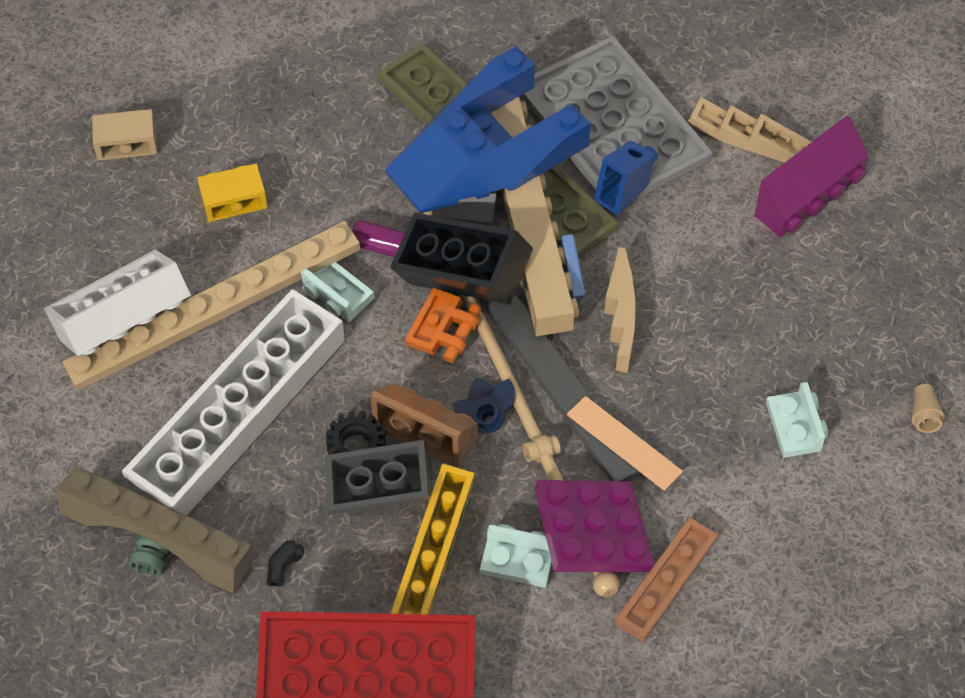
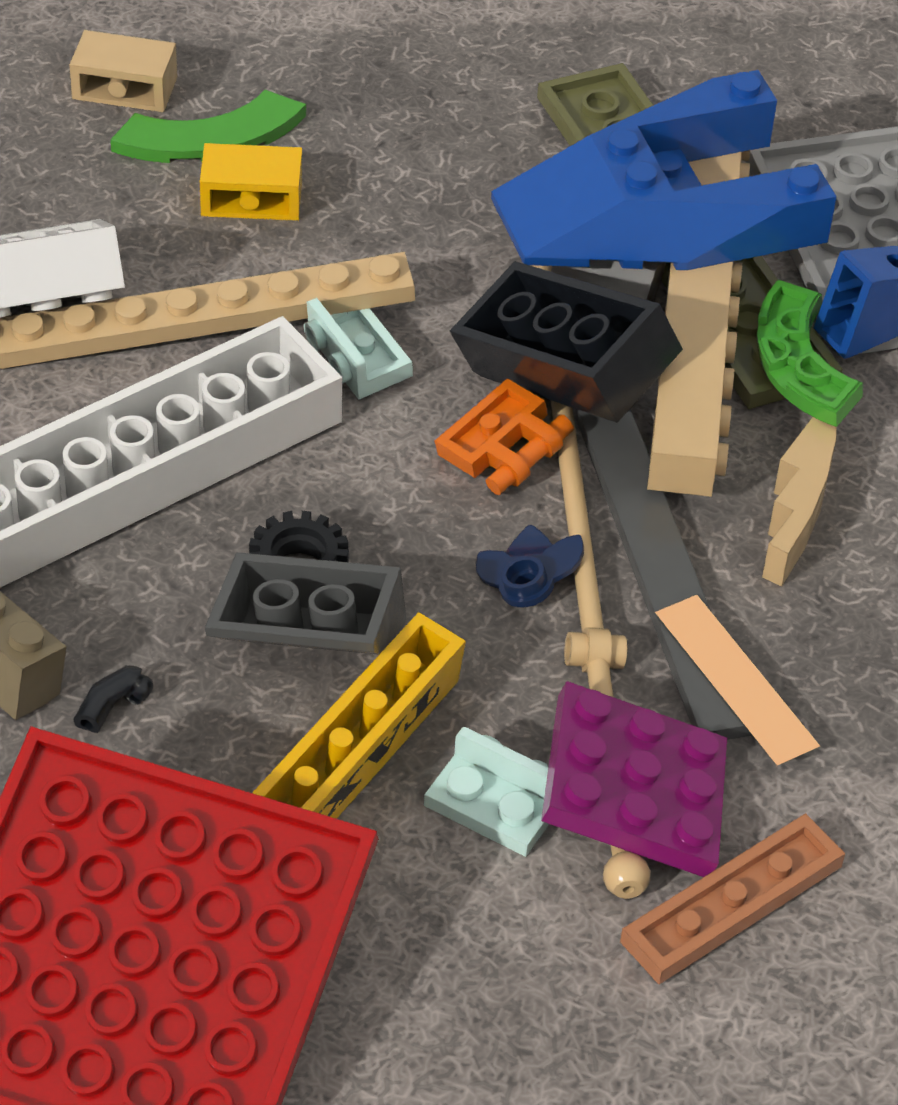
camera: 15 degrees right, 10 degrees down
(204, 159) = (160, 140): none -> bright green tile
(378, 237) = (443, 292): magenta axle -> none
(415, 418) = (436, 571): medium nougat slope -> none
(572, 266) = (742, 406): medium blue tile -> none
(590, 228) = (790, 360): none -> bright green tile

